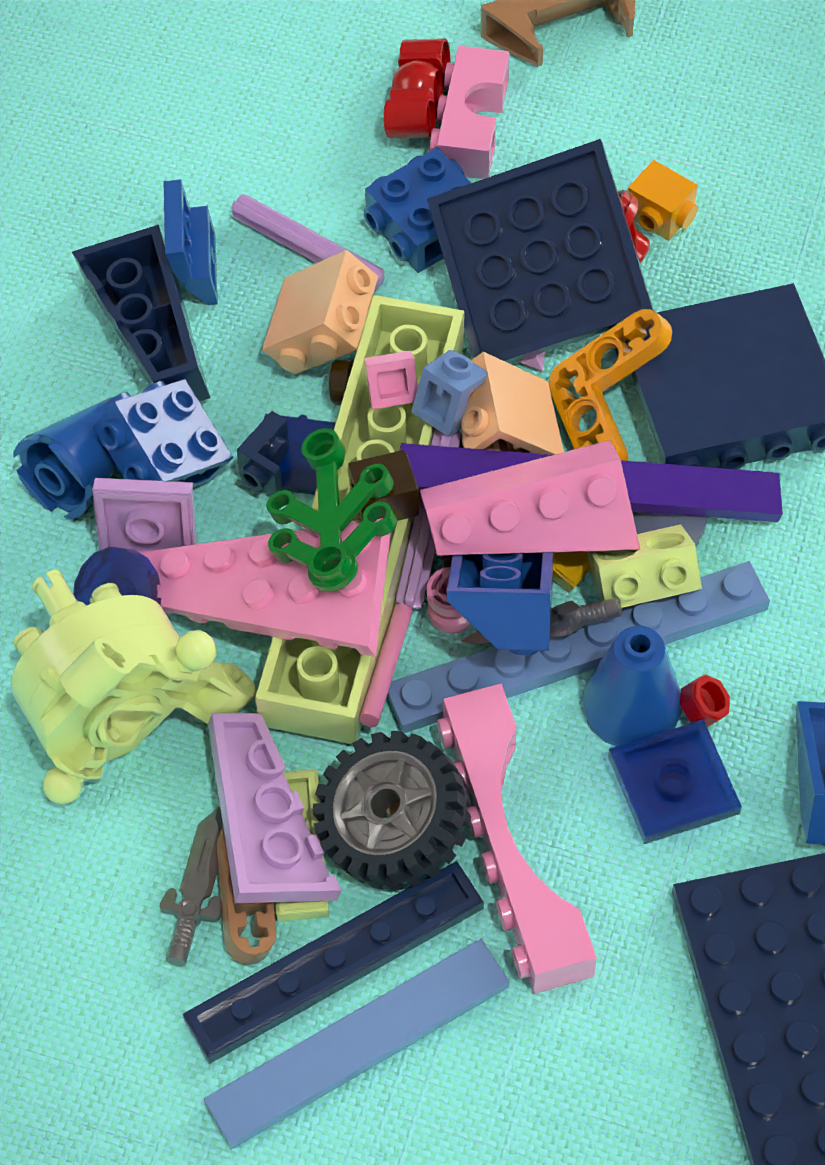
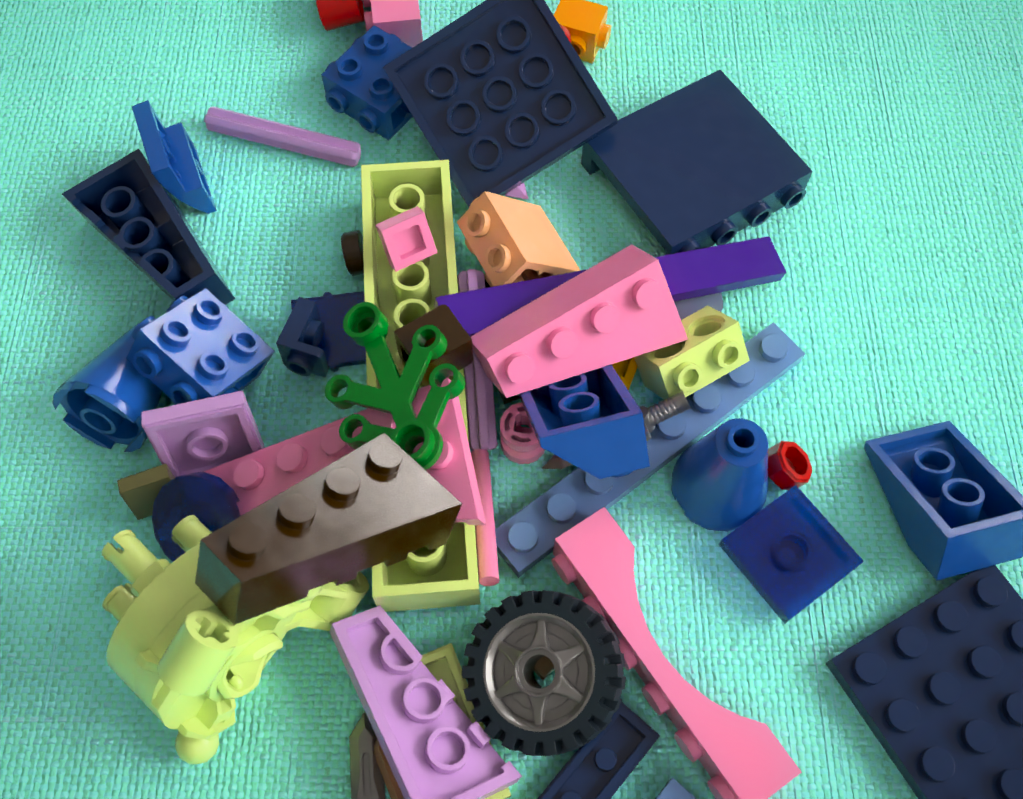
camera: 20 degrees left, 5 degrees up
(73, 551) = (142, 489): none -> olive tile
(233, 609) = (325, 530): none -> dark brown wedge
(320, 313) = (316, 194): light nougat brick -> none
(446, 391) = (463, 236): medium blue bracket -> none
(594, 380) = (580, 194): light orange beam -> none

